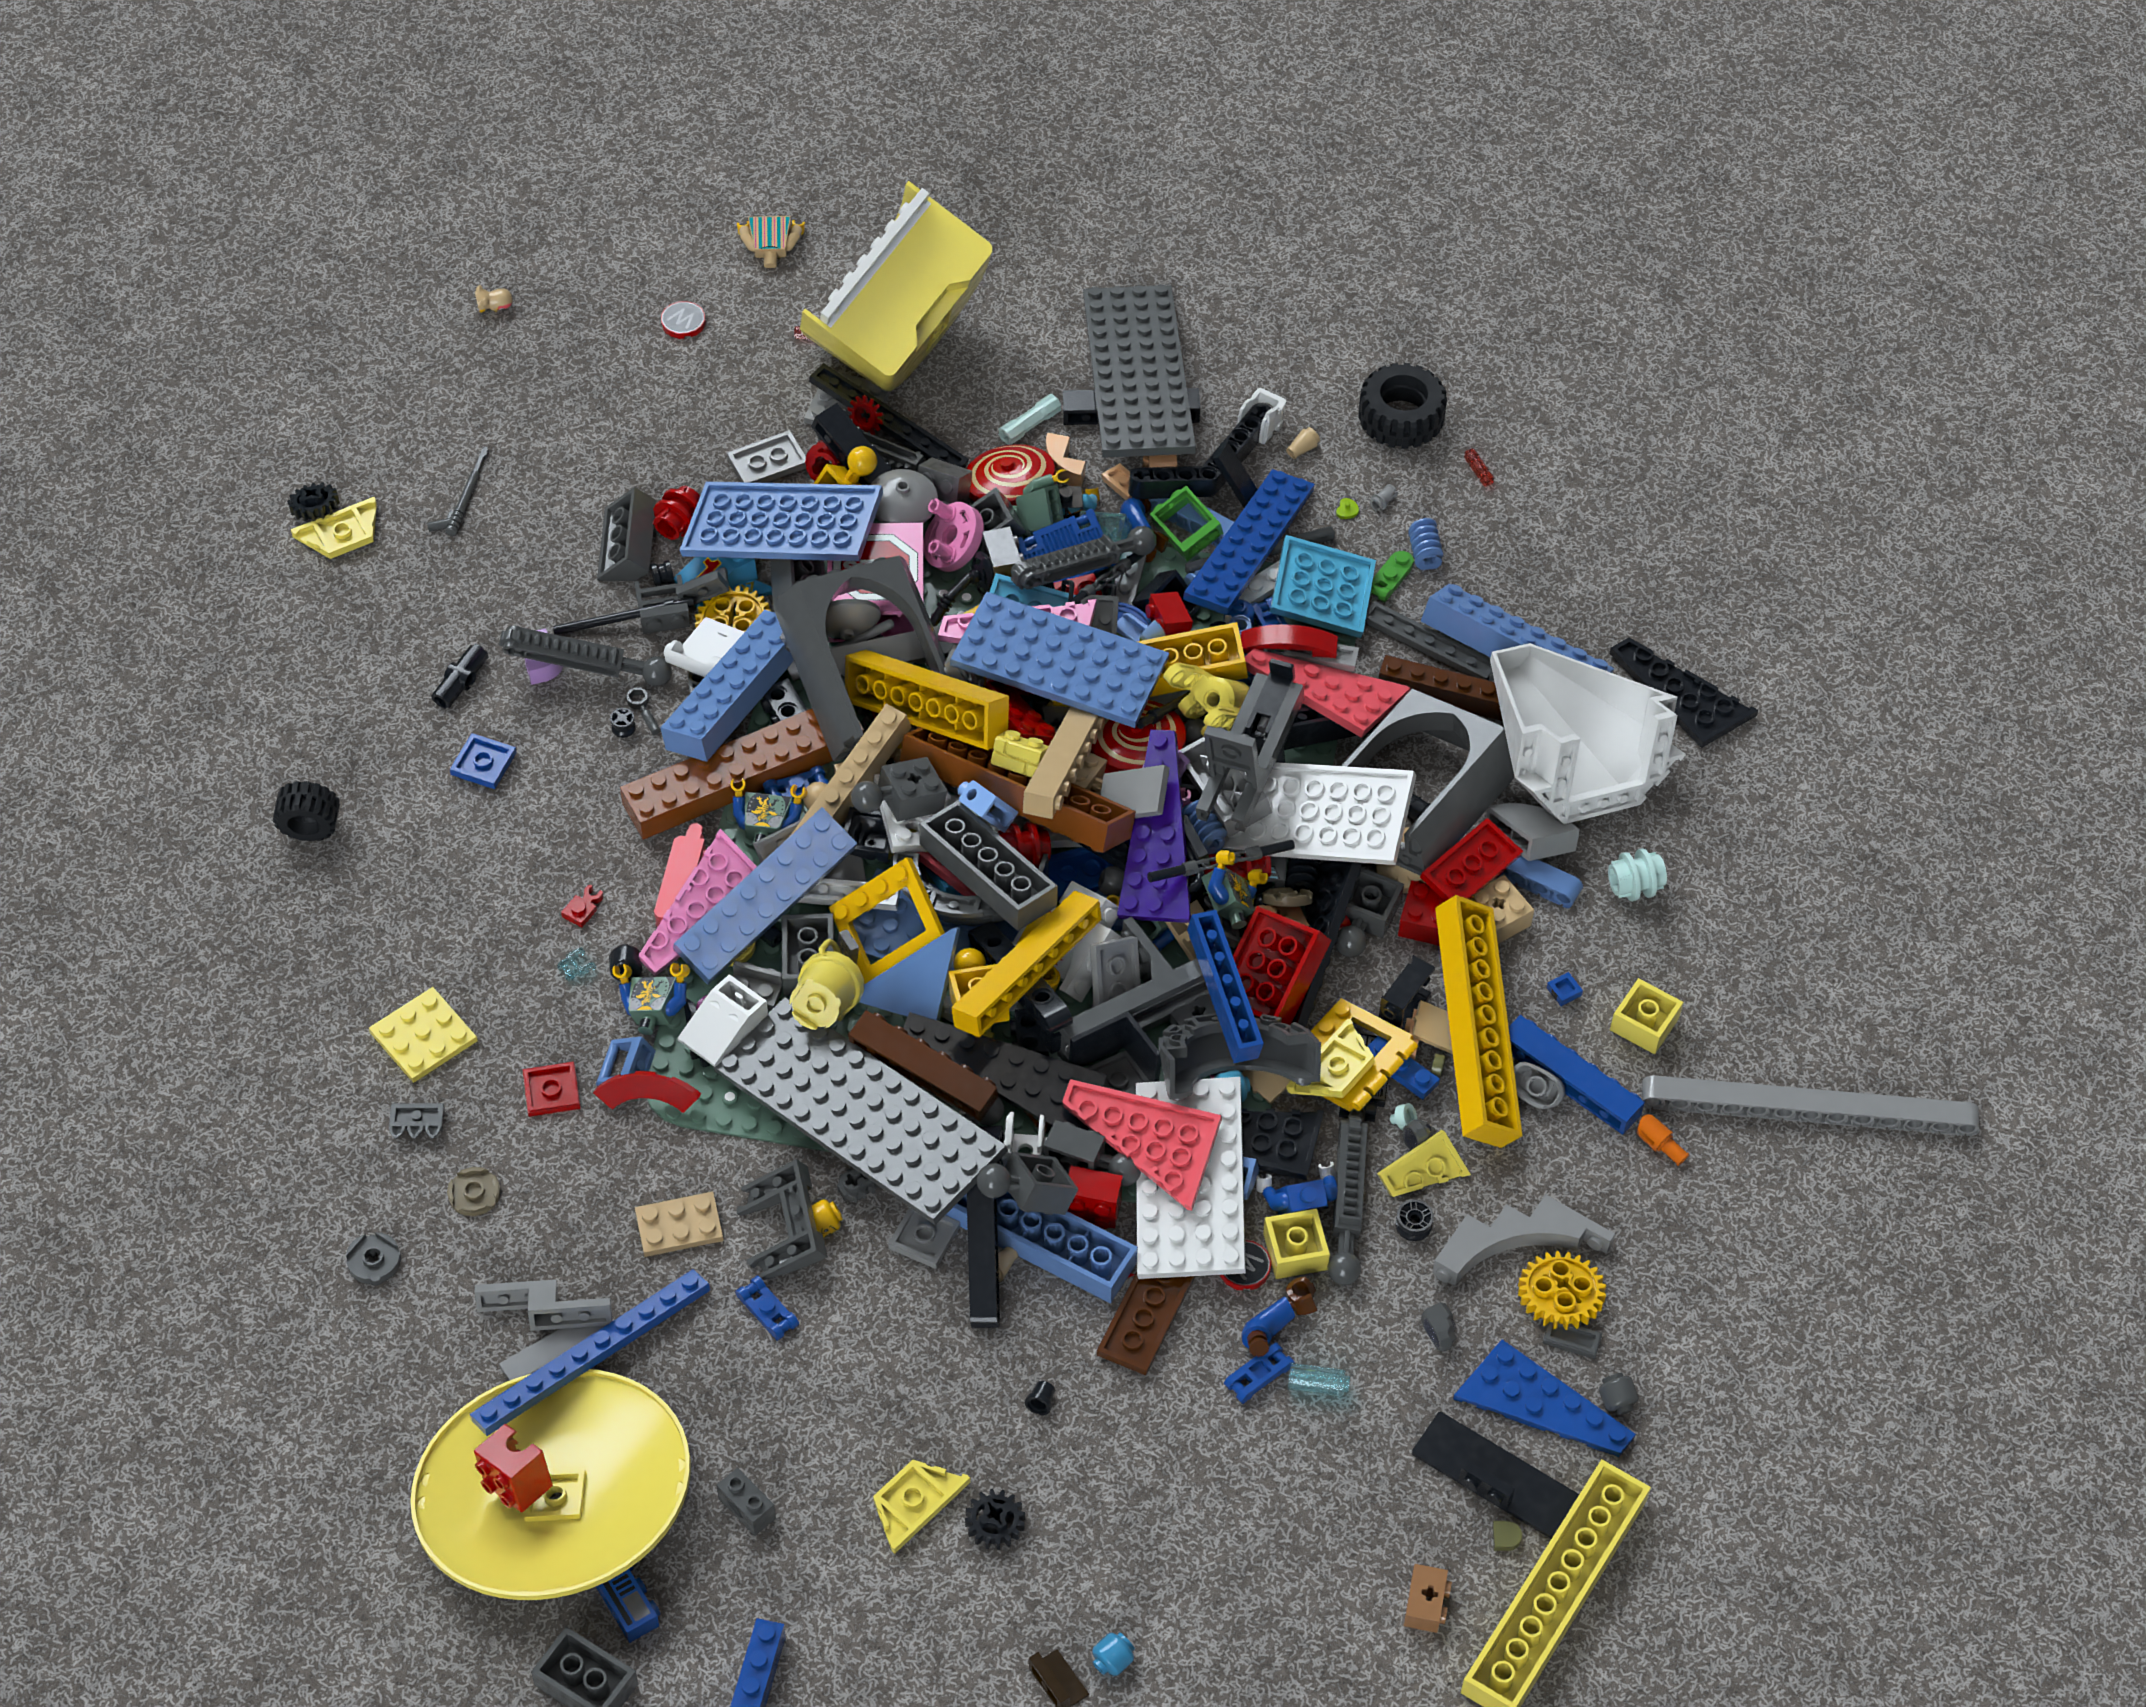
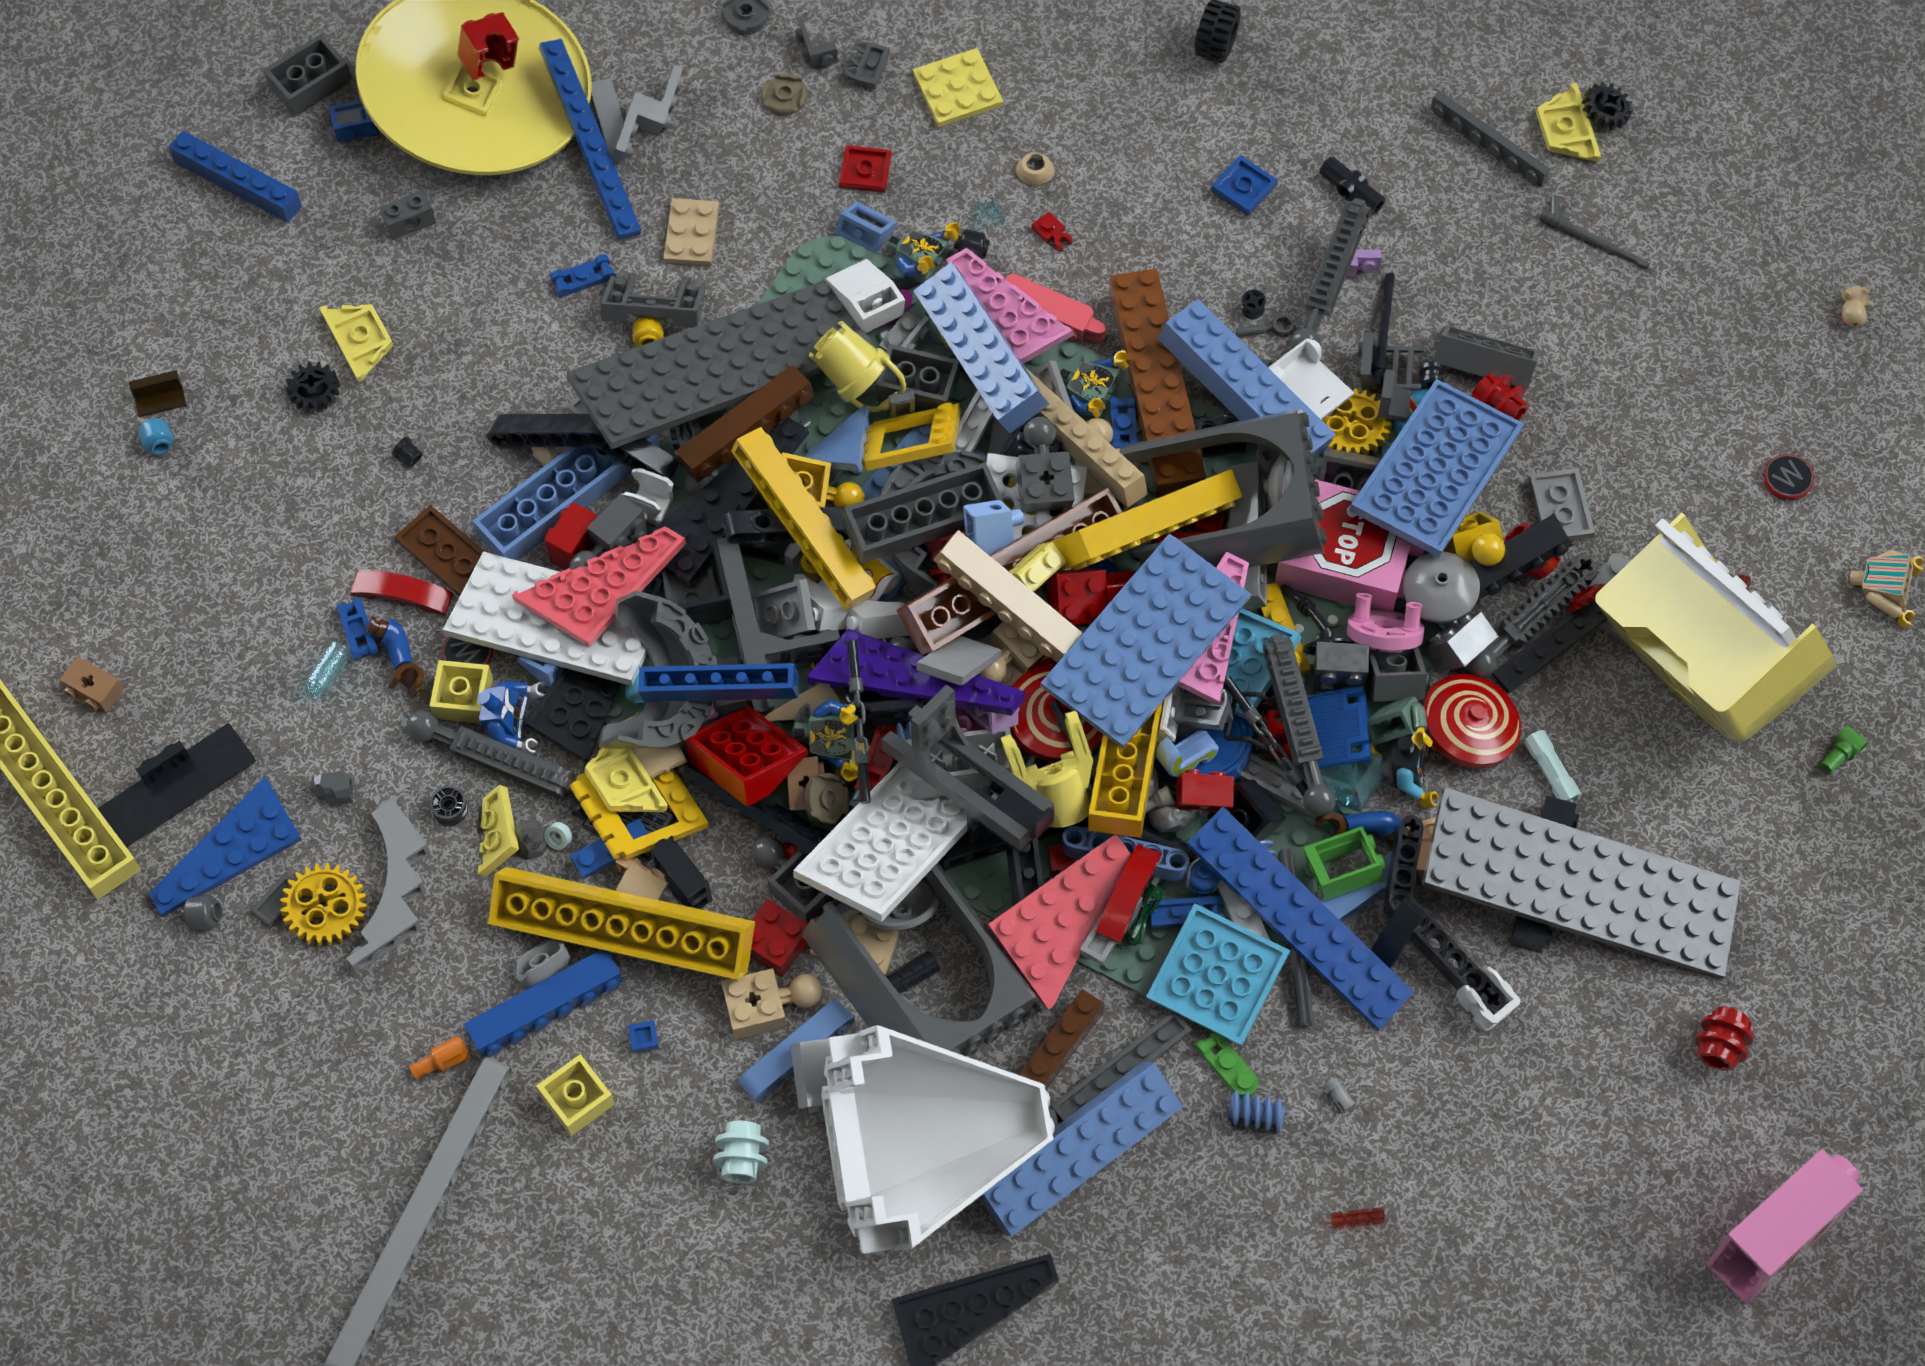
camera: 110 degrees right, 10 degrees up
(374, 583) = (1489, 138): none -> dark grey plate
(411, 1180) = (819, 55): none -> dark grey bracket
(513, 950) = (1035, 177): none -> tan piece
(647, 1085) = (825, 225): red tile -> none
(1032, 1180) = (595, 488): dark grey brick -> none
(1058, 448) = (1489, 776): light nougat brick -> none
(1202, 1351) = (402, 589): none -> red slope
(1230, 269) = (1724, 1038): none -> red piece
(1304, 442) = (1443, 1037): tan cone -> none
(1347, 509) = (1337, 1055): lime piece -> none
(1376, 197) = (1786, 1224): none -> bright pink brick
(1400, 426) = (1467, 1122): black tyre -> none
(1438, 1065) = (600, 881): olive tile -> none
(1472, 862) = (799, 980): red plate -> none
(1506, 1535) = (120, 773): olive tile -> none

